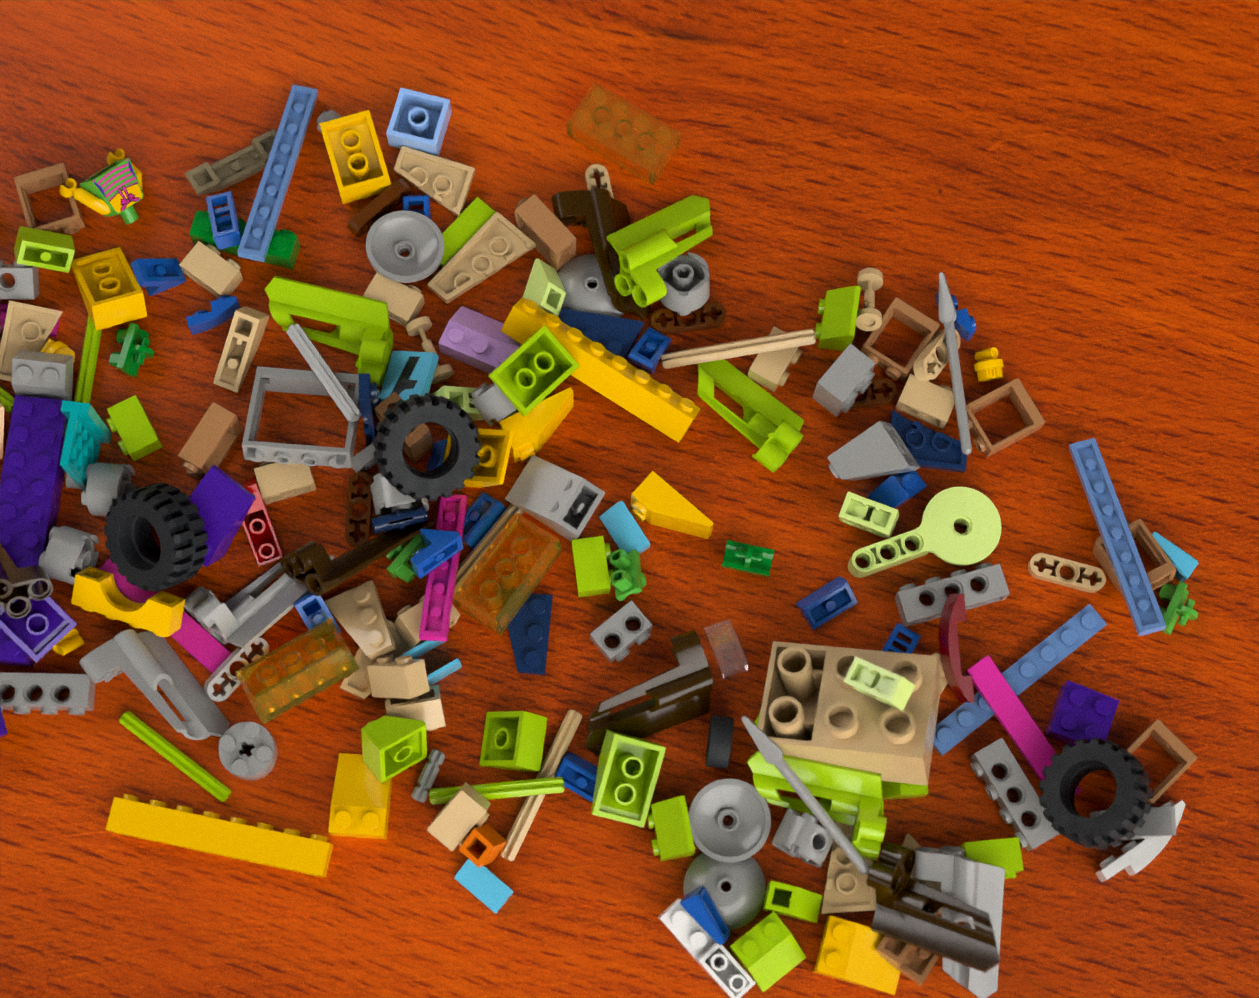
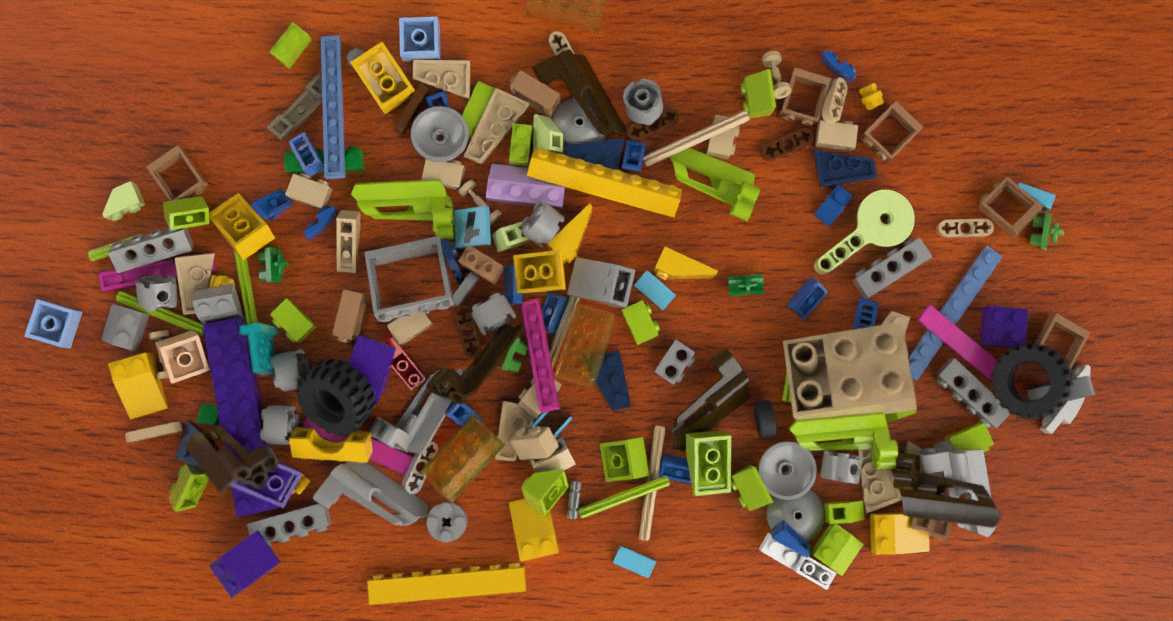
camera: 15 degrees left, 10 degrees up
(111, 189) = (218, 154): torso -> none
(175, 756) = (398, 538): lime axle -> none
(250, 83) = (290, 45): none -> lime brick
(324, 373) = (411, 242): light grey axle -> none
(363, 618) = (496, 407): tan wing -> none
(417, 515) = (499, 332): dark blue pin -> none
(440, 547) = (534, 343): blue slope -> none
(451, 472) = (525, 292): black tyre -> none
(459, 817) = (605, 523): tan brick -> none
(482, 845) = (626, 537): orange brick -> none
(506, 291) = (521, 145): none -> lime brick
(533, 370) = (560, 200): lime slope -> none
(627, 573) = (667, 321): bright green hips -> none
(650, 245) = (611, 83): lime panel -> none
(726, 648) = (749, 352): clear slope -> none
(774, 755) = (809, 423): light grey piece -> none
(844, 380) = (777, 139): light grey brick -> none
(868, 515) = (820, 230): yellowish green brick -> none
(872, 454) = (813, 188): light grey slope -> none
(879, 683) = (871, 356): yellowish green brick -> none
(947, 316) = (835, 71): light grey piece -> none
(953, 612) = (898, 284): dark red slope -> none
(1117, 537) = (996, 195): medium blue plate -> none

